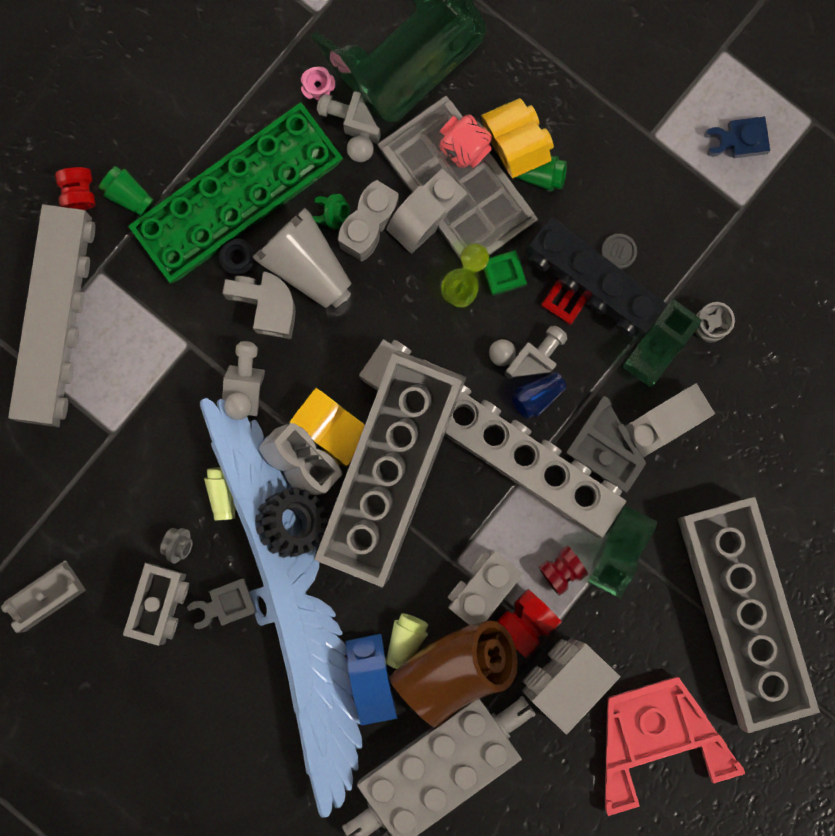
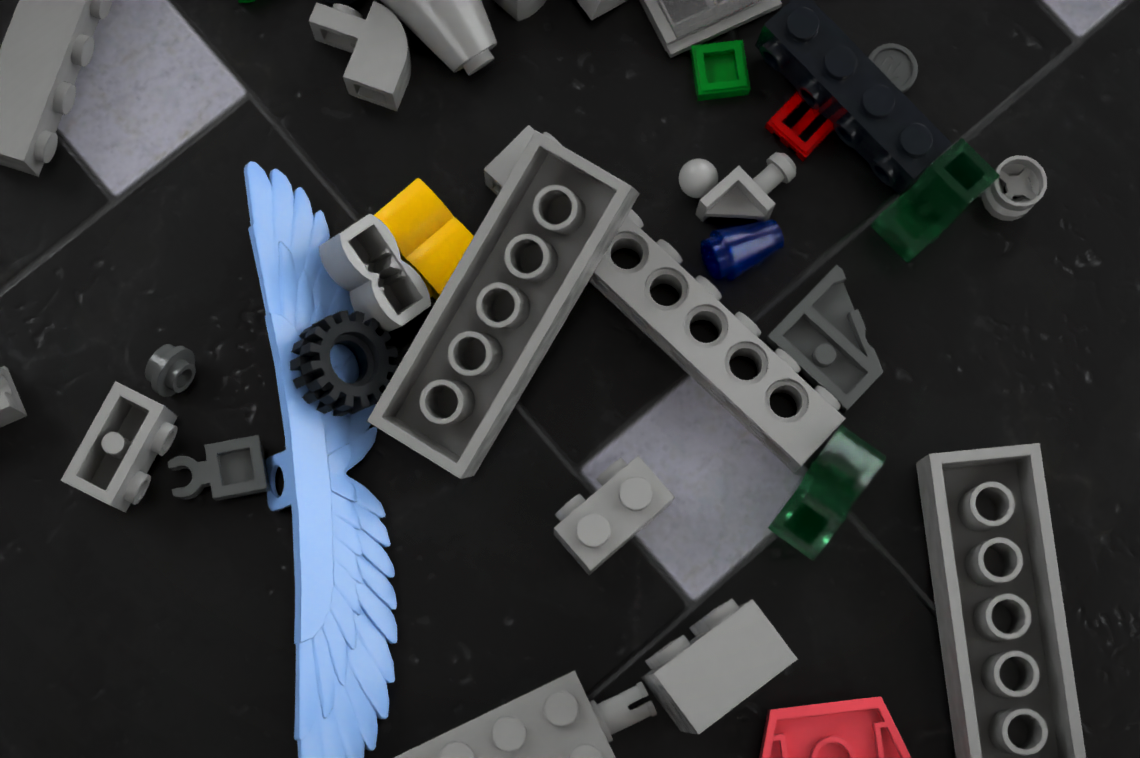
camera: 10 degrees right, 5 degrees down
(219, 495) = (248, 309): yellowish green cone -> none
(242, 384) = (312, 158): light grey piece -> none
(370, 680) = (417, 619): blue brick -> none
(405, 639) = (481, 570): yellowish green cone -> none
(457, 671) = (550, 622): reddish brown brick -> none
(461, 285) = (680, 39): clear neon green plate -> none
(529, 622) = (667, 574): red wheel -> none
(564, 569) = (734, 507): dark red wheel -> none
(669, 420) = (928, 314): light grey brick -> none

